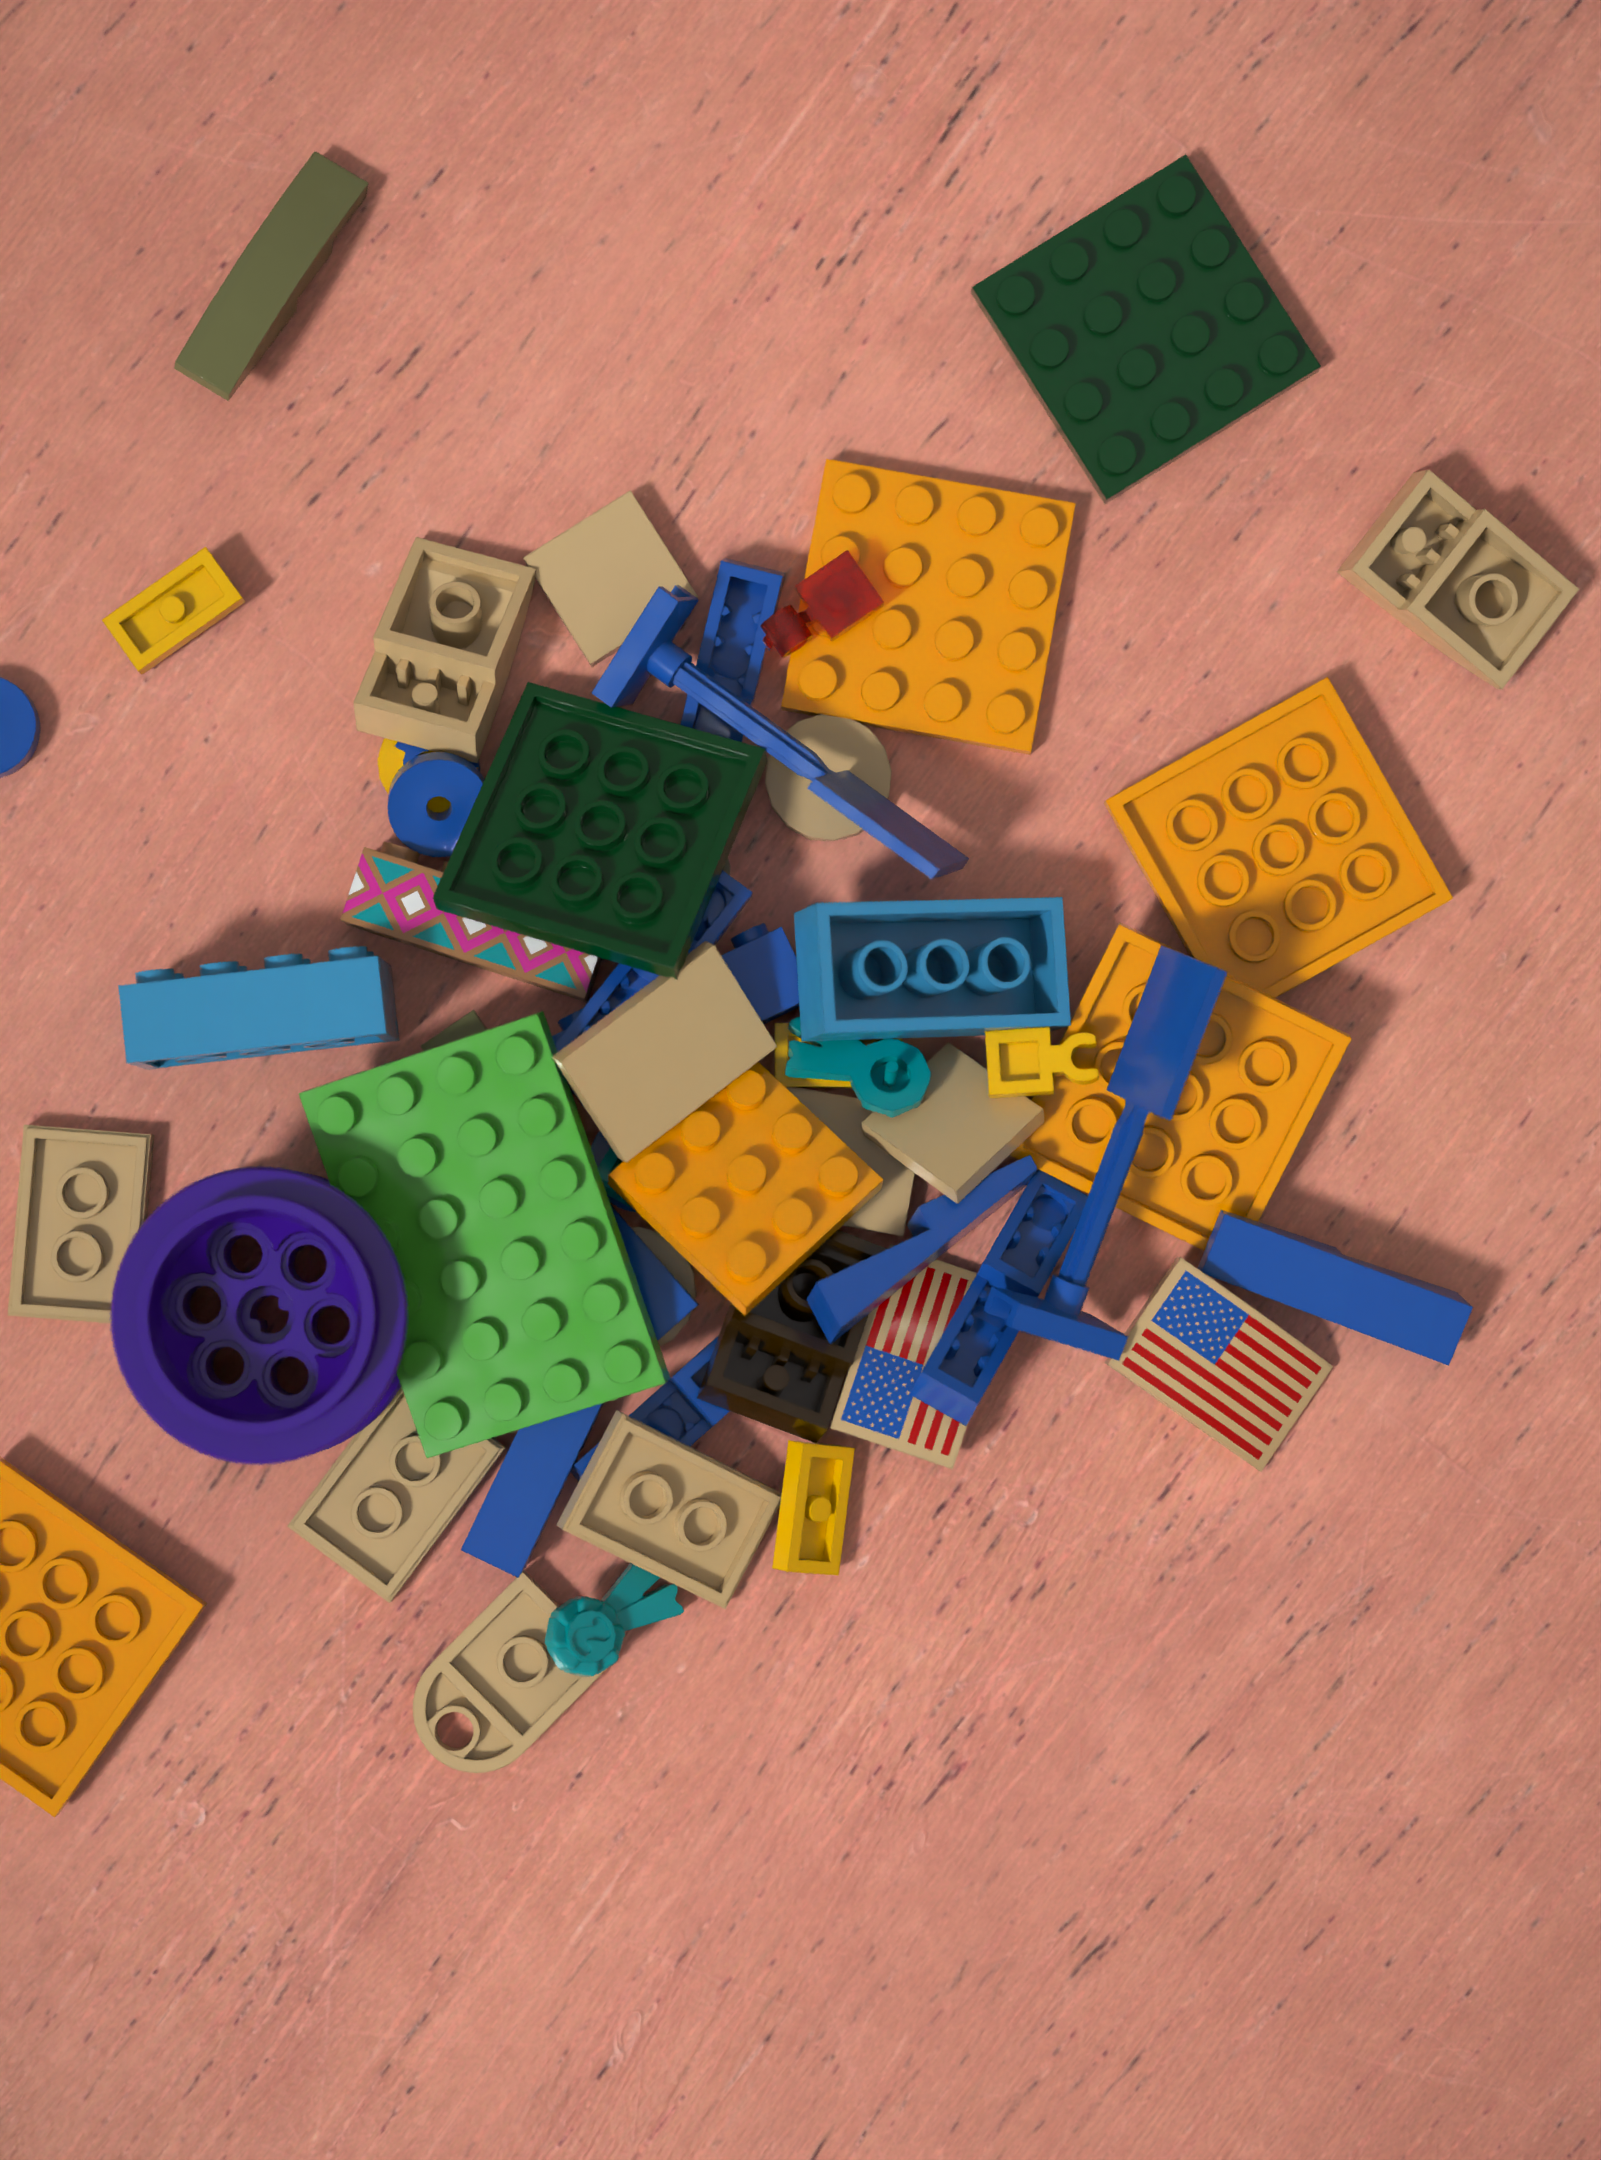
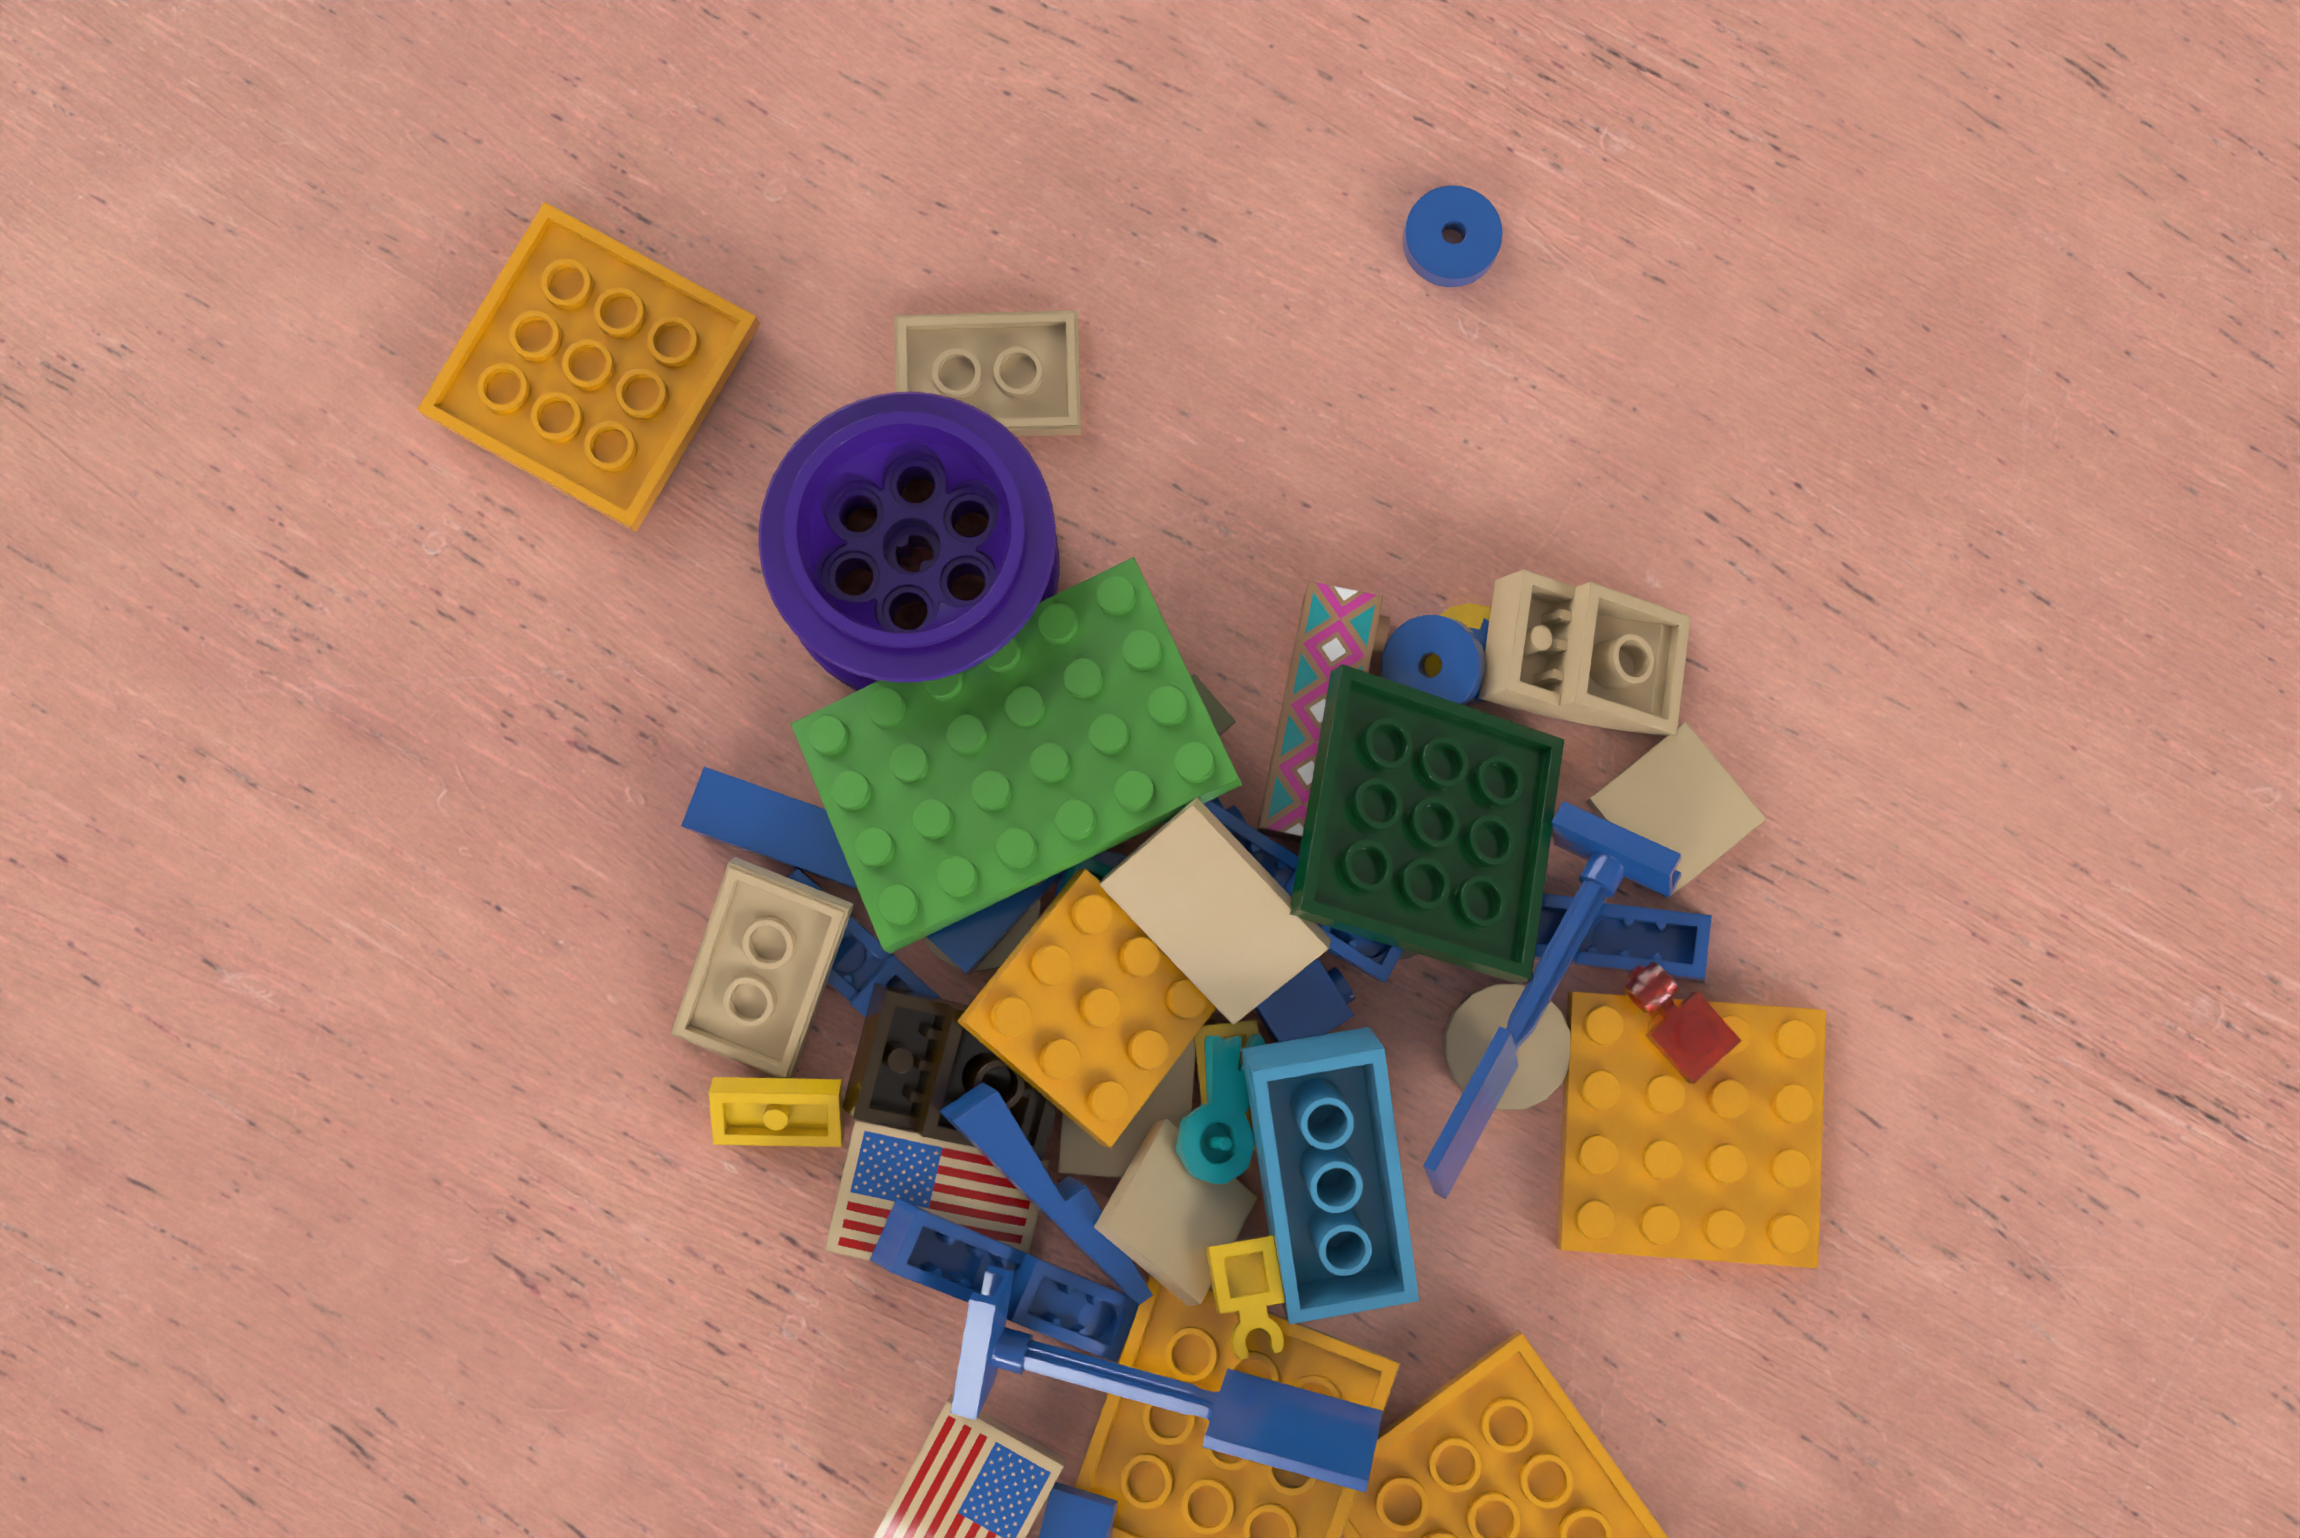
camera: 75 degrees right, 5 degrees down
(173, 610) = (1587, 394): yellow plate -> none
(258, 1012) = (1210, 511): dark azure brick -> none
(271, 276) = (1925, 447): olive slope -> none
(388, 1501) = (744, 691): tan tile -> none
(499, 1681) = (588, 829): tan tile -> none
(589, 1632) = (632, 901): teal piece -> none
(1145, 329) = (2004, 1322): dark green plate -> none

